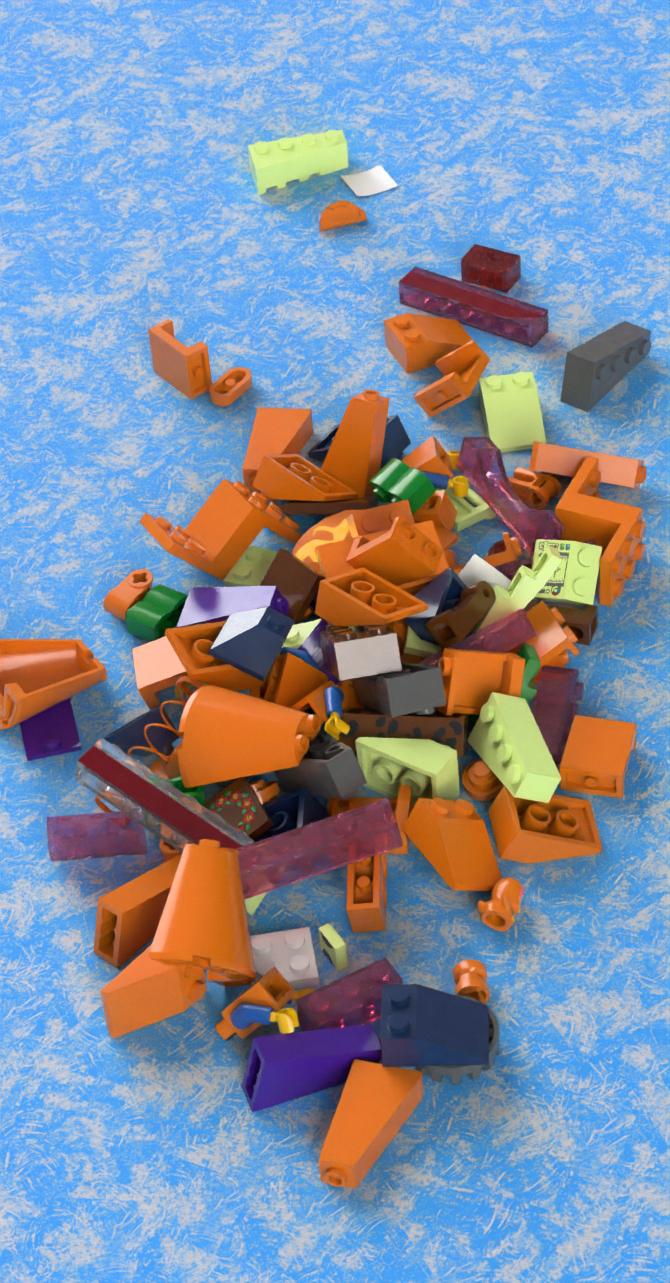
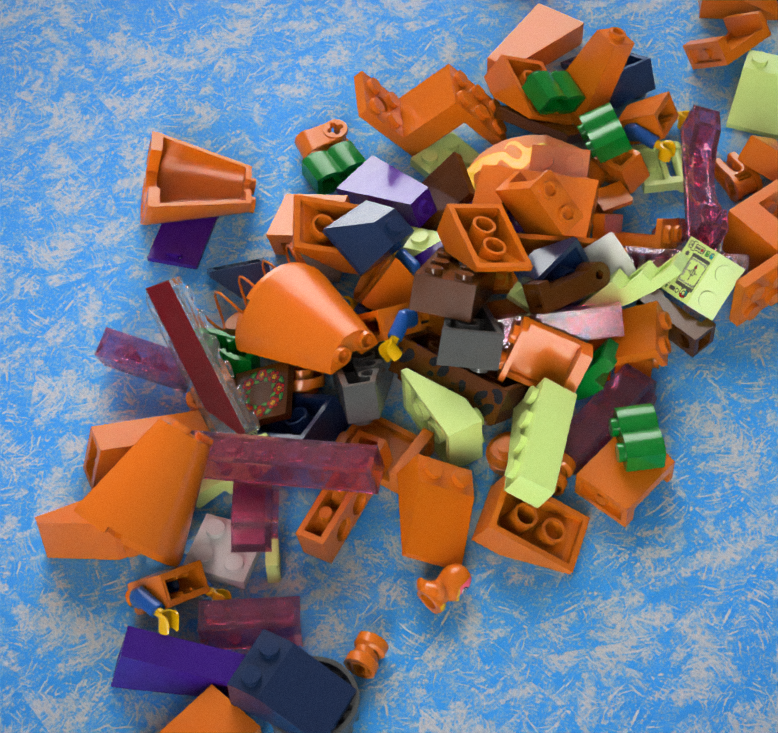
camera: 25 degrees right, 10 degrees up
(297, 914) = (254, 517): none -> clear pink brick
(331, 471) = (553, 92): none -> green brick
(597, 714) = (638, 437): none -> green brick

